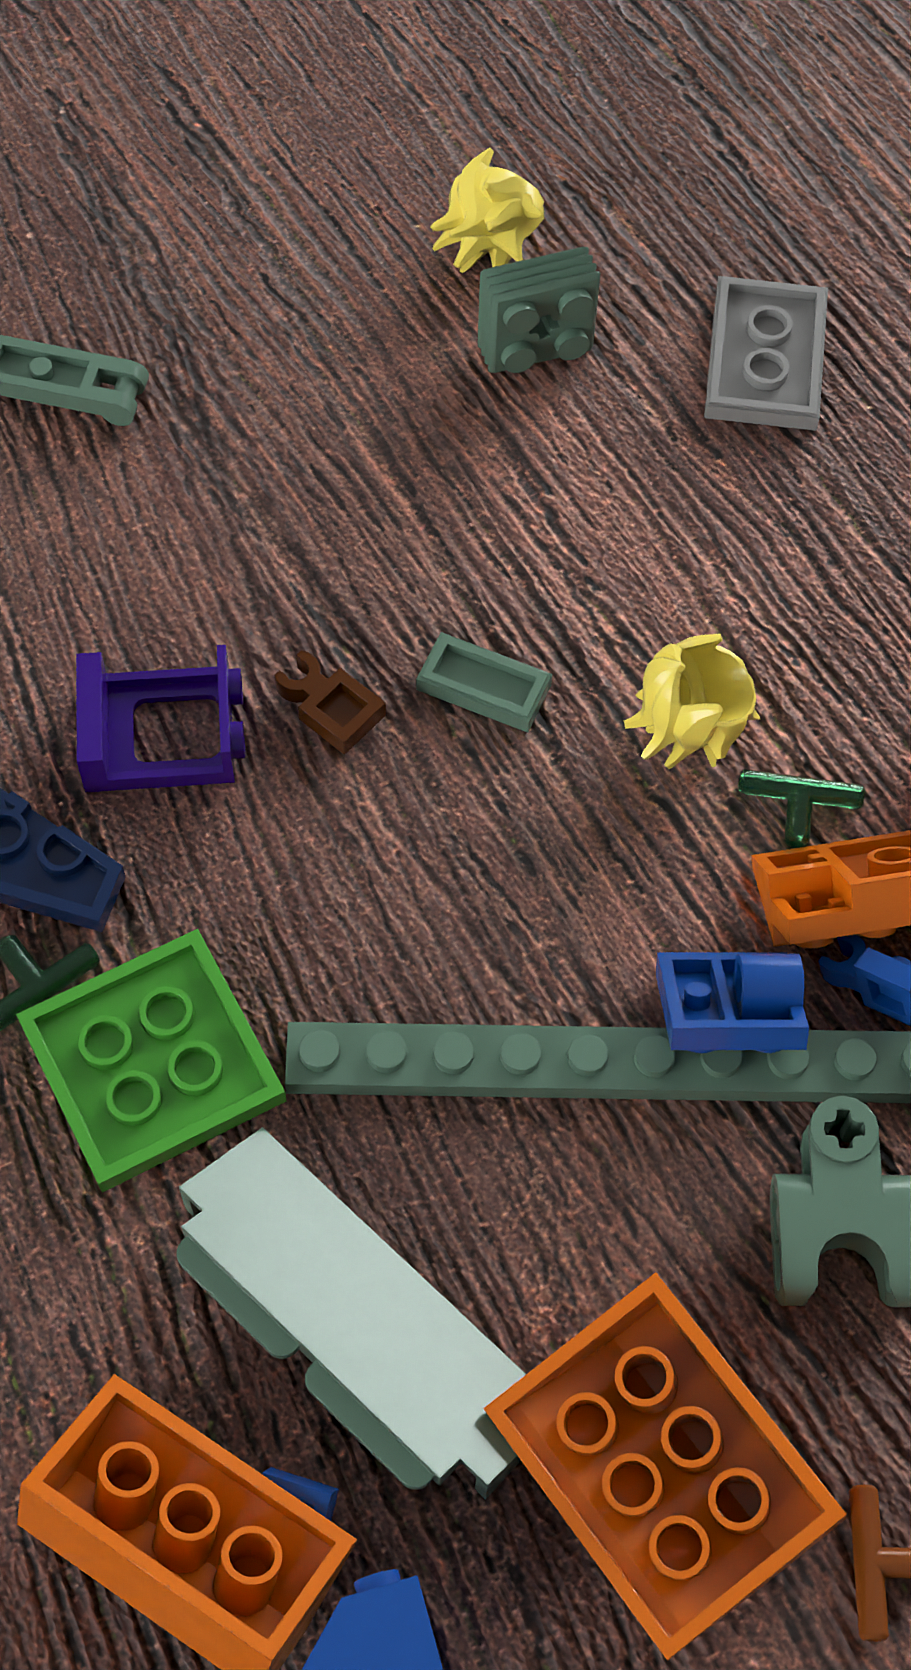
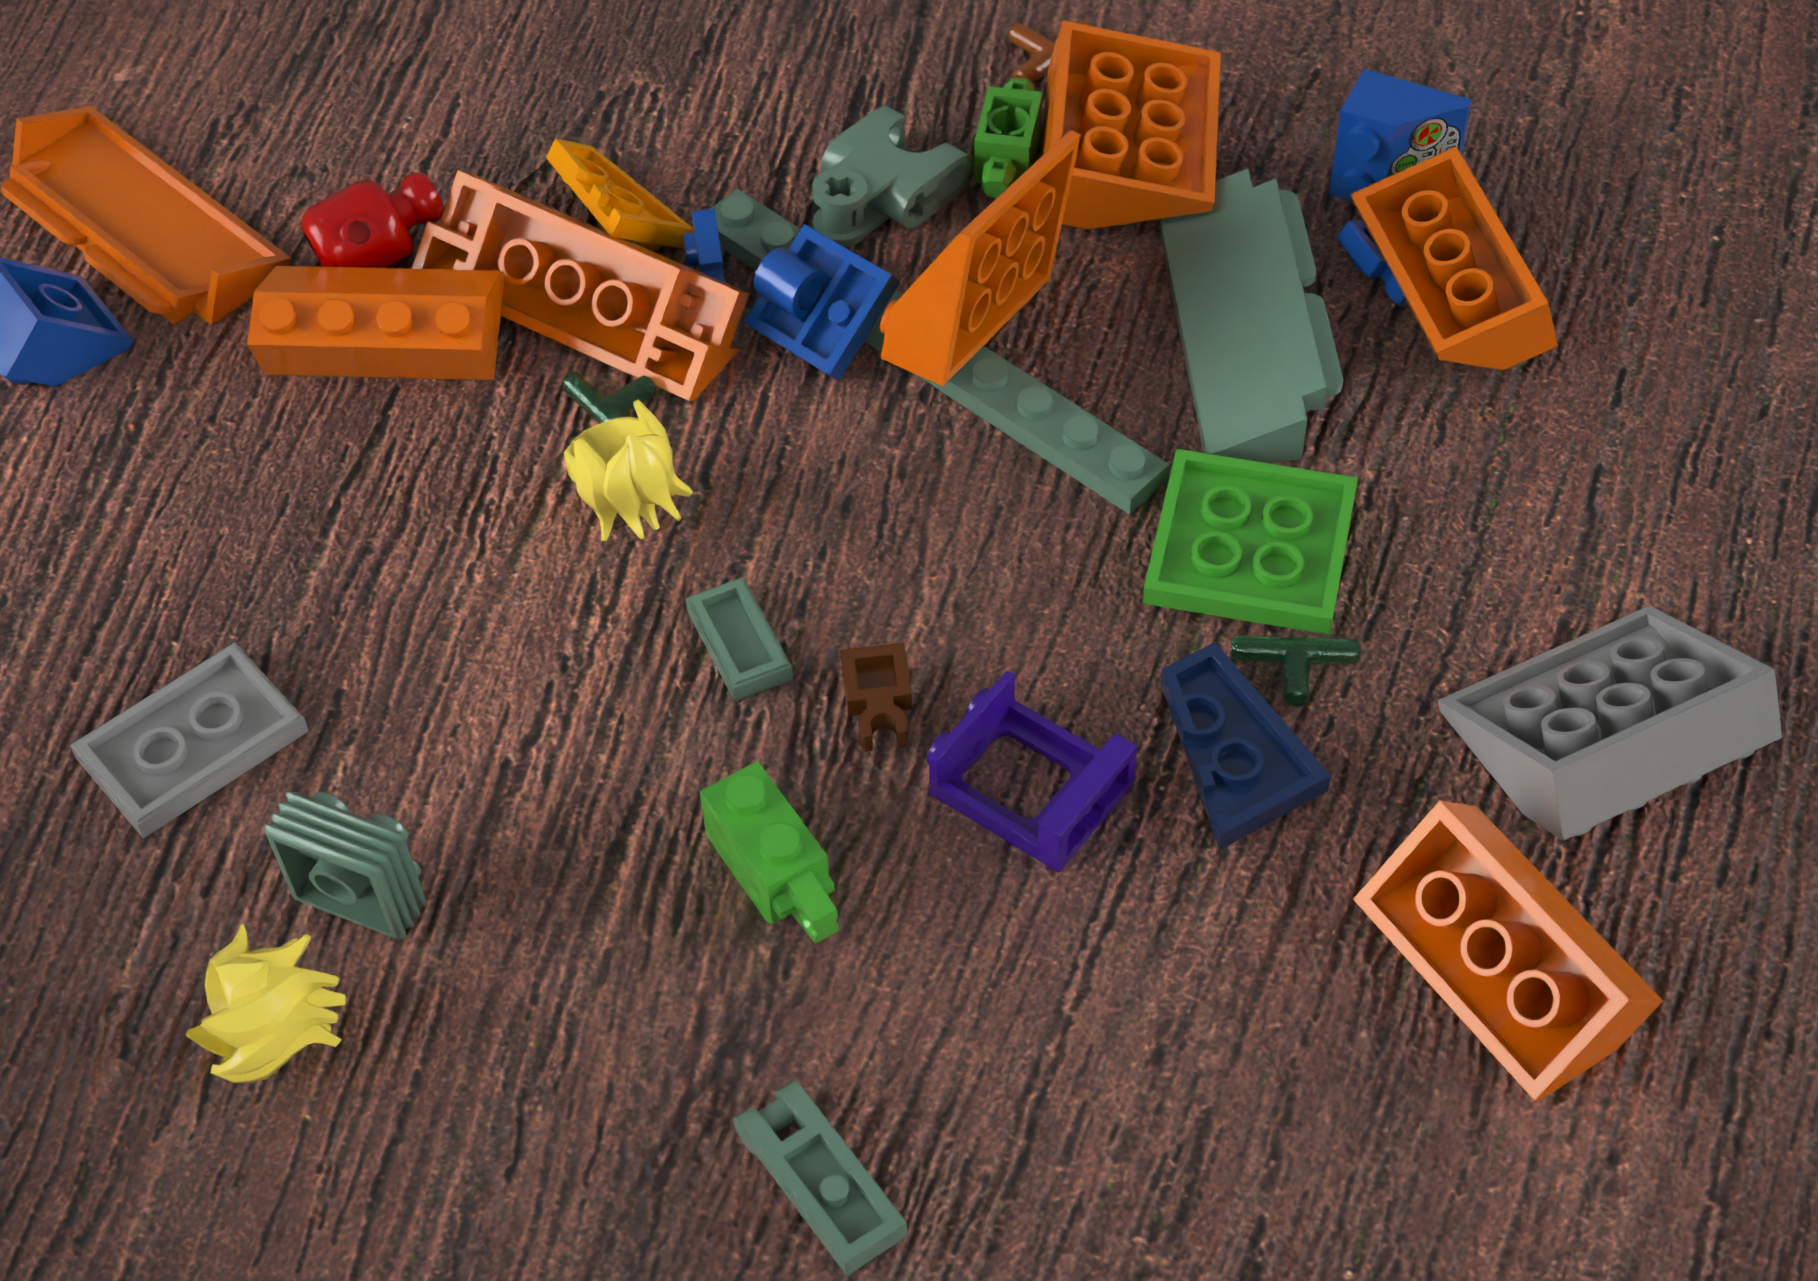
camera: 135 degrees left, 10 degrees down
(281, 524) = (770, 850): none -> bright green hinge
(602, 1091) = (982, 273): none -> orange slope
(824, 1433) = (1007, 135): none -> bright green piece

